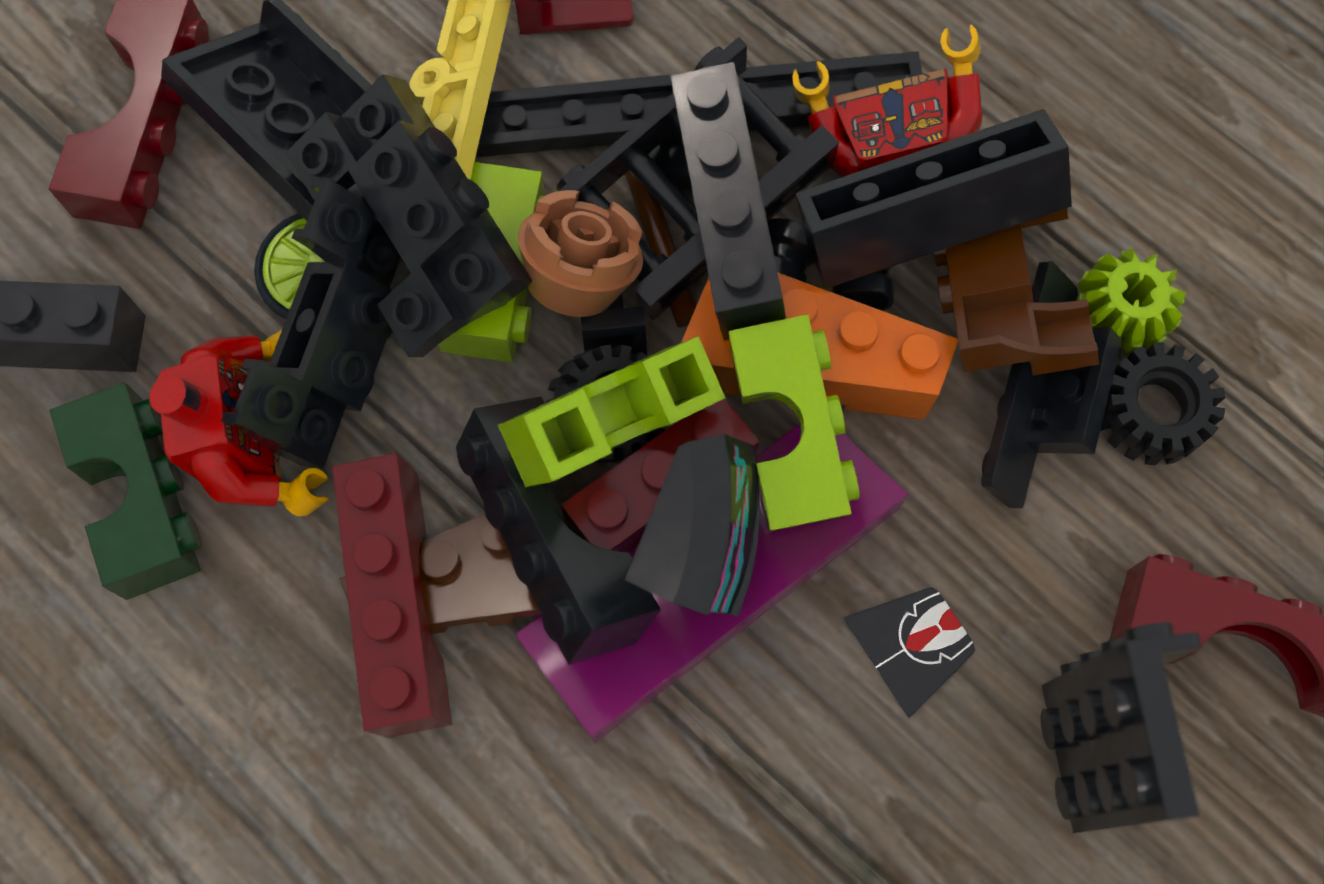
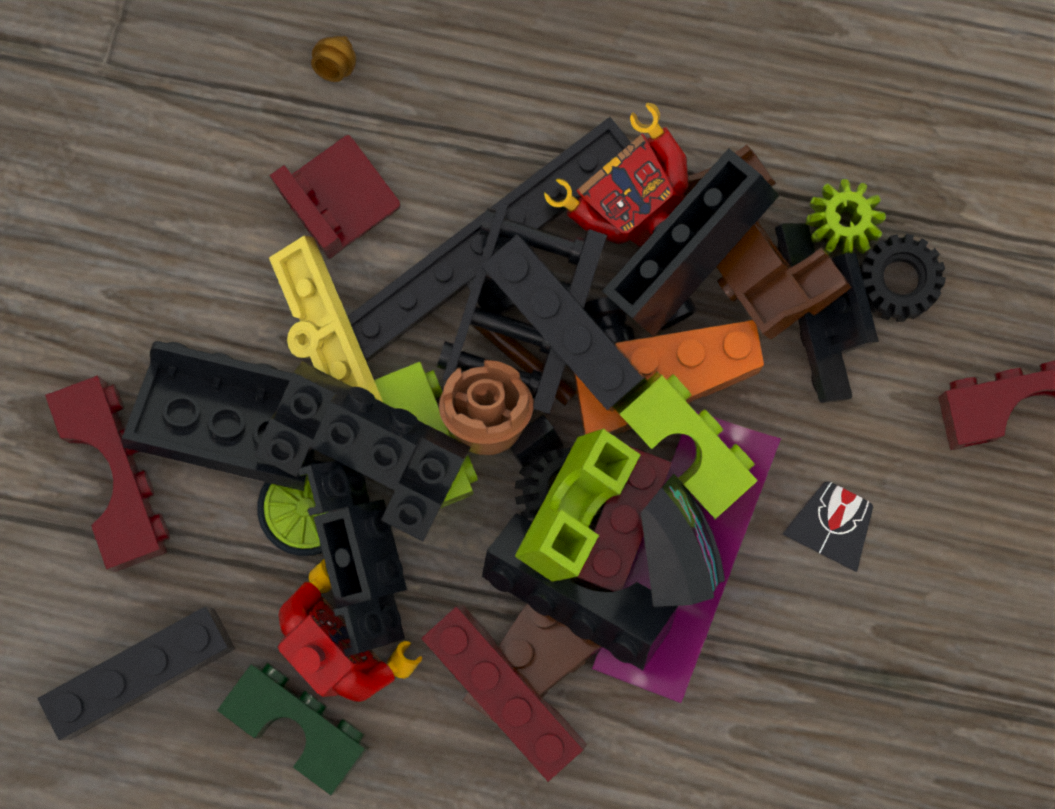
camera: 25 degrees left, 10 degrees up
(1120, 732) = (980, 524): black bracket -> none

